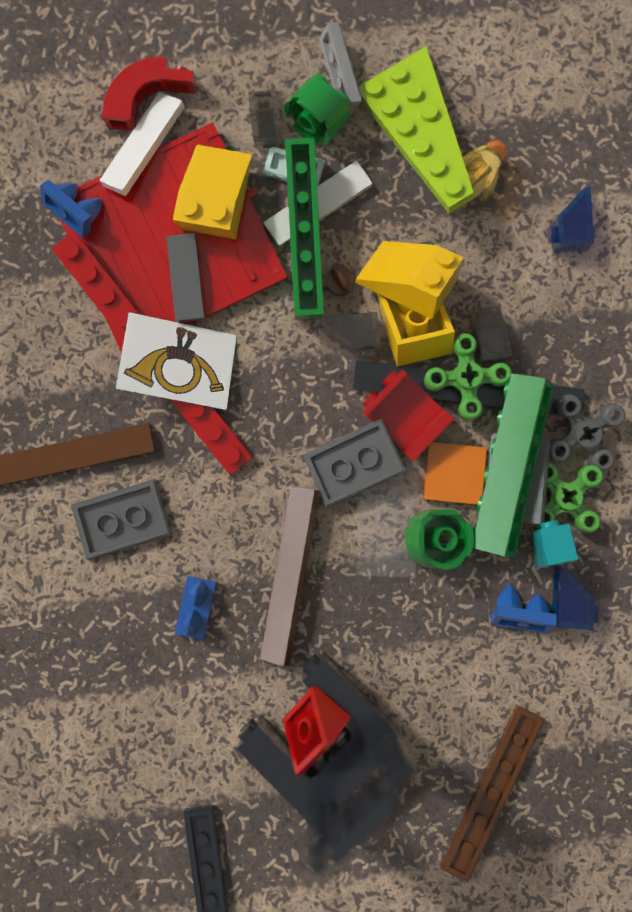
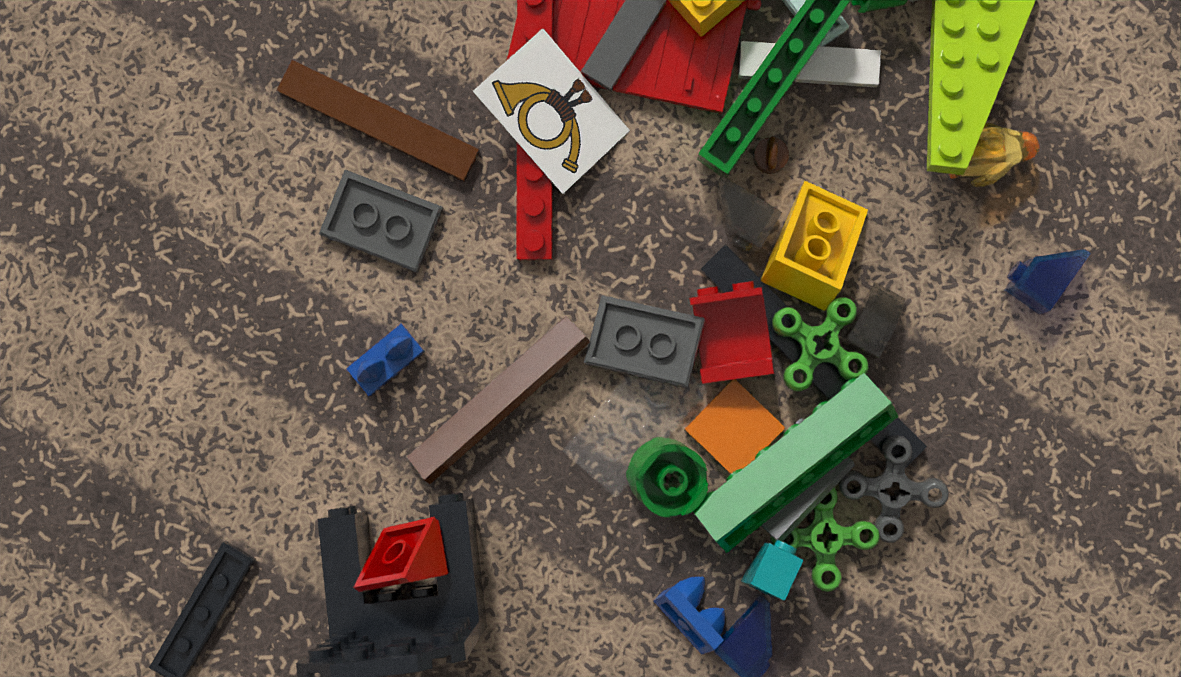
camera: 45 degrees right, 0 degrees up
(412, 274) = (845, 203): yellow slope -> none

